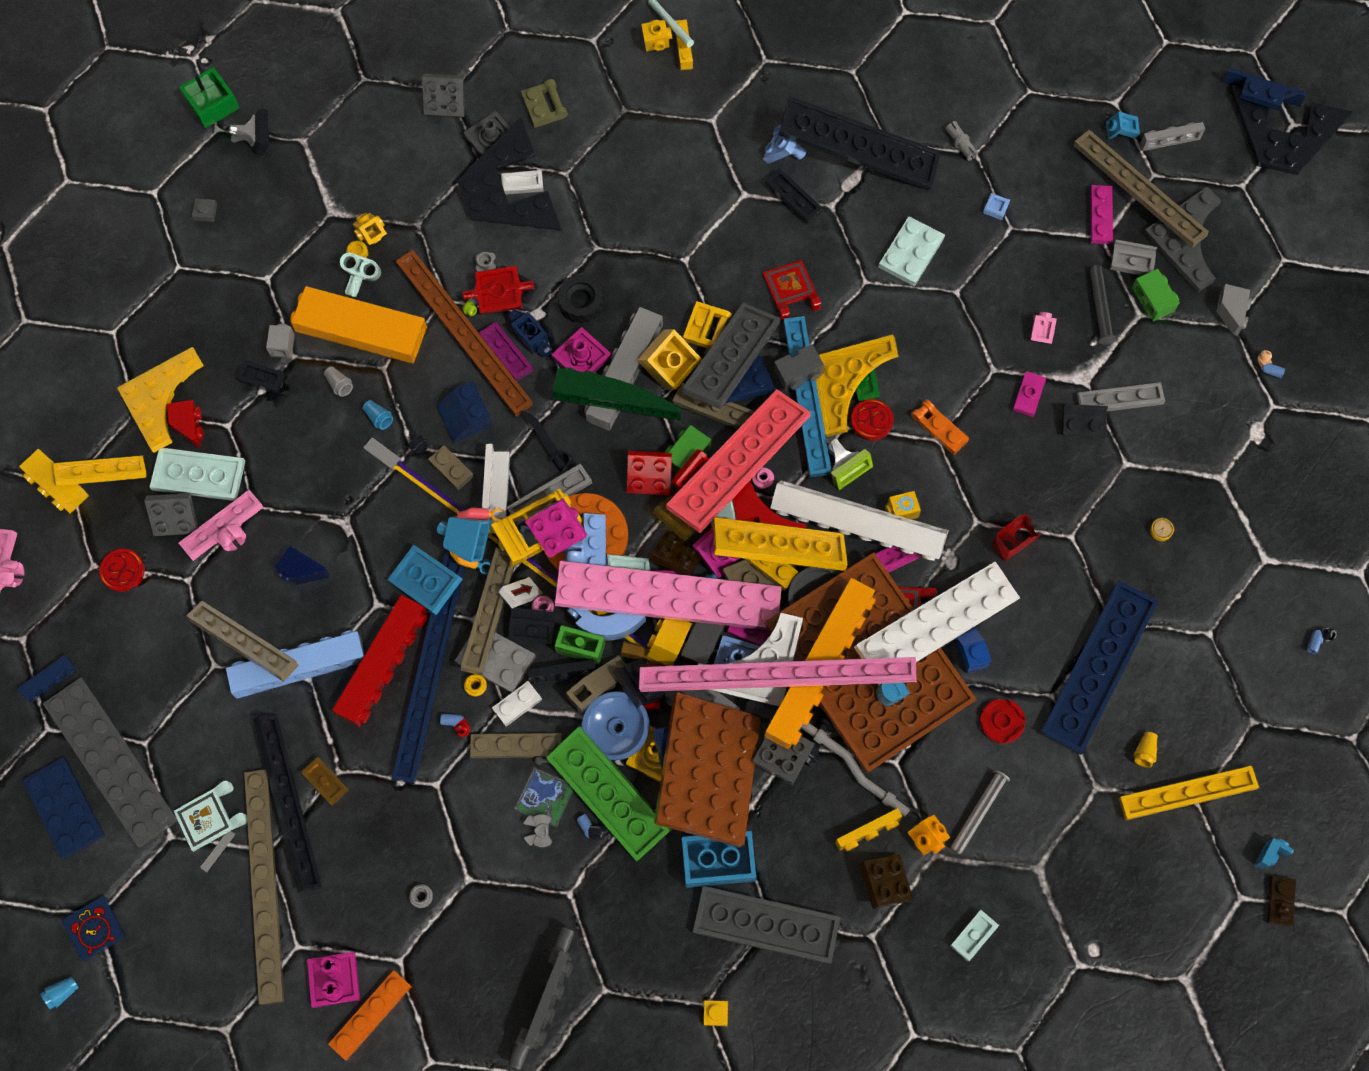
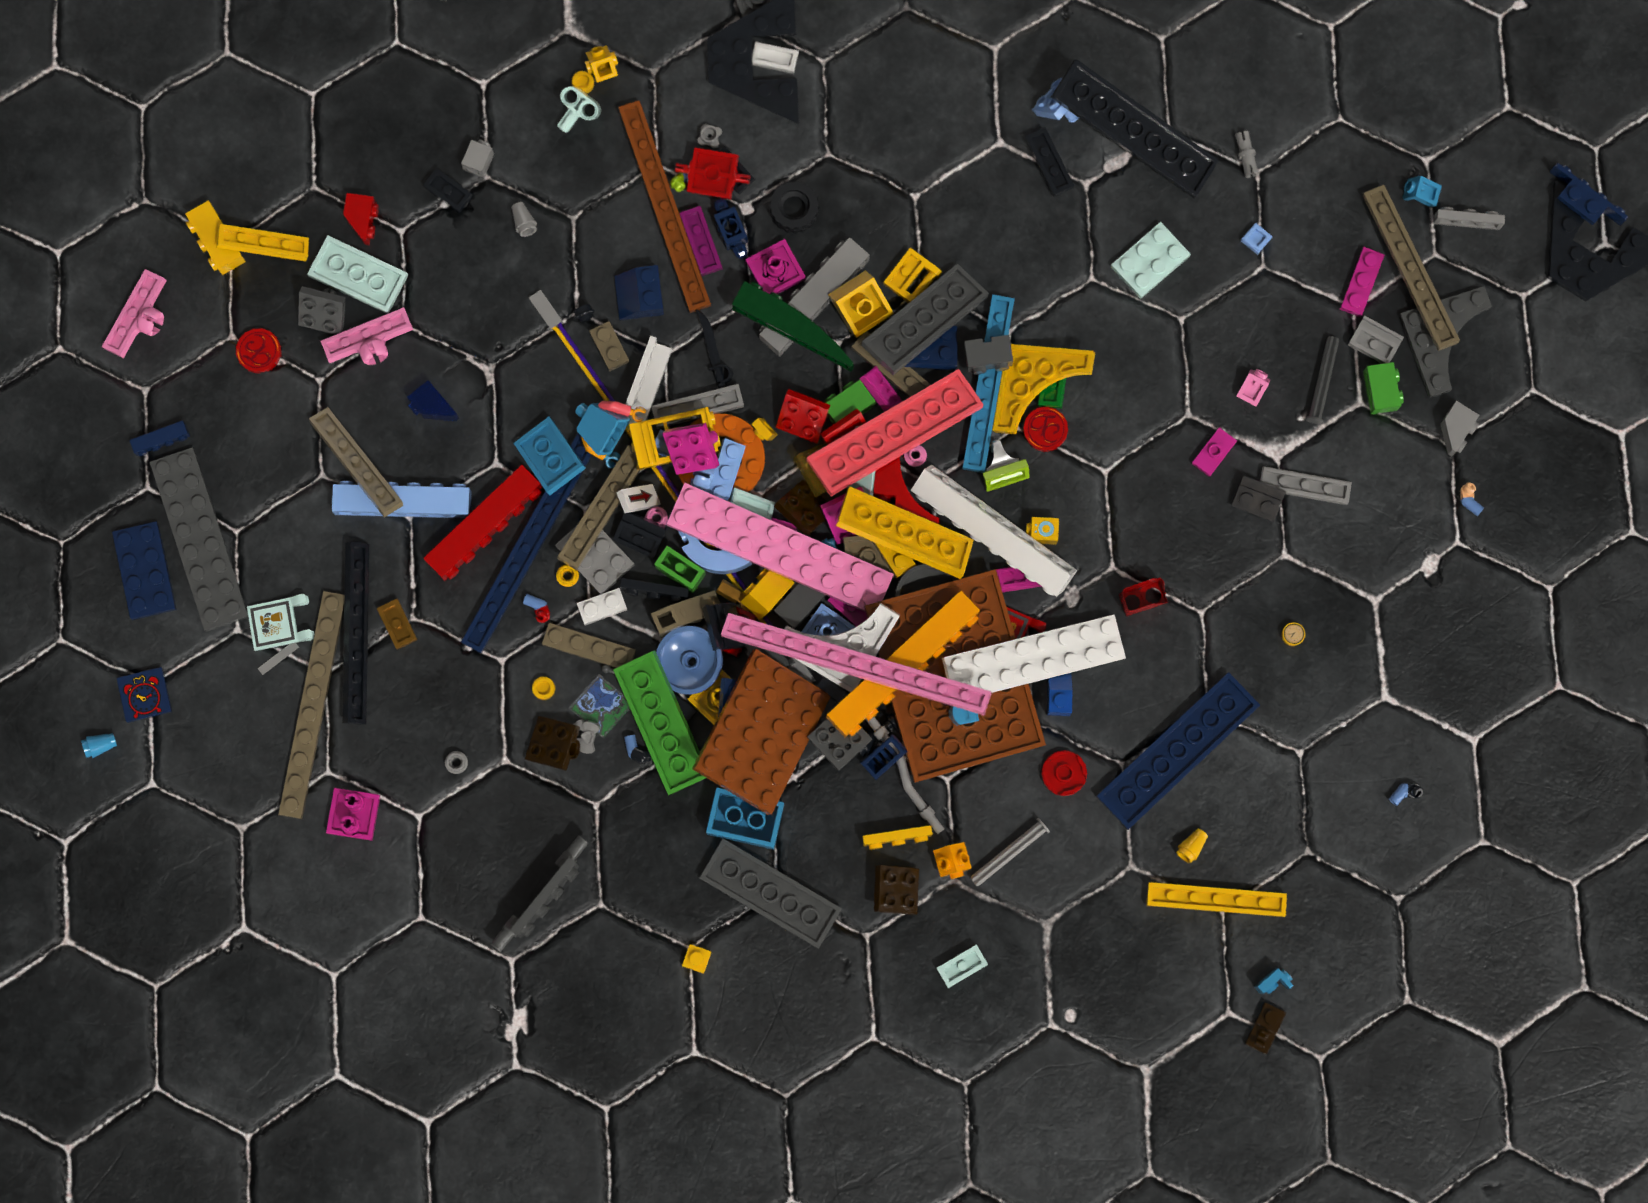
camera: 15 degrees right, 10 degrees up
(153, 390) = (334, 174): yellow plate -> none
(358, 324) = (561, 165): light orange brick -> none
(370, 1015) = (377, 857): orange plate -> none
(378, 415) = (553, 269): dark azure cone -> none
(484, 798) = (543, 688): none -> yellow tile
(510, 846) = (553, 743): none -> dark brown plate
(617, 497) = (764, 430): none -> yellow plate
(711, 428) = (880, 389): none -> dark pink plate
(790, 285) = (1012, 259): red flag -> none
(823, 772) = (873, 768): none -> dark blue slope
(940, 427) = (1111, 459): orange plate -> none

